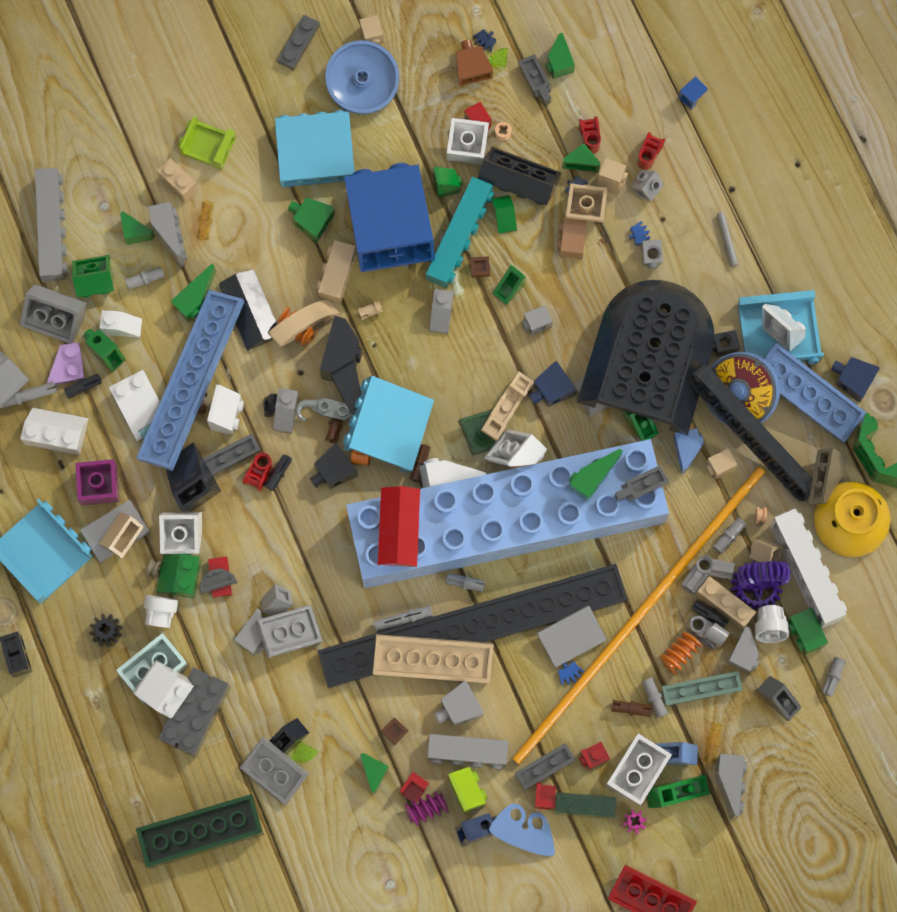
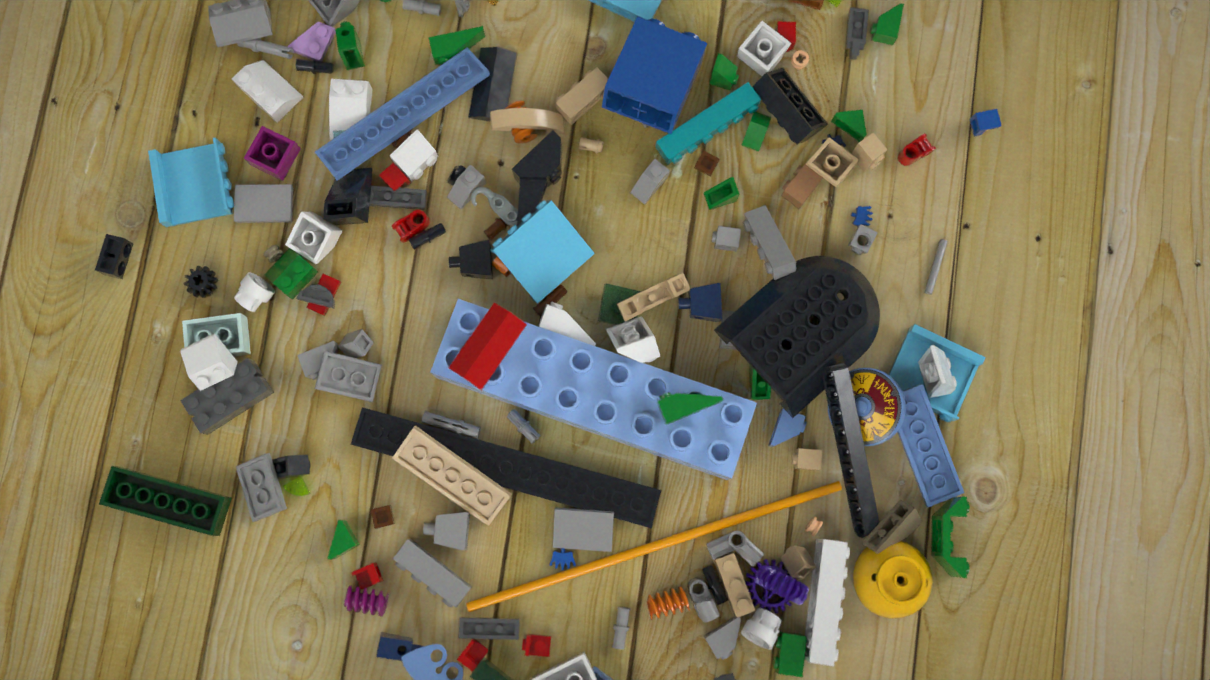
camera: 30 degrees right, 5 degrees up
(120, 324) = (376, 33): white slope -> none
(121, 534) = (263, 209): tan brick -> none
(218, 439) = (394, 177): none -> red panel
(312, 217) = (592, 37): green torso -> none
(467, 790) = (408, 608): lime slope -> none
(576, 301) = (769, 242): none -> light grey brick
(590, 131) = (874, 103): red piece -> none
(631, 708) = (595, 624): reddish brown pin -> none
(642, 484) = (723, 440): dark grey hinge -> none
(647, 185) = (895, 178): light grey brick -> none
(701, 688) = (667, 645): sand green plate -> none
(729, 535) = (775, 526): light grey pin -> none
(731, 338) = (885, 357): black brick -> none
(855, 377) = (974, 455): dark blue torso -> none

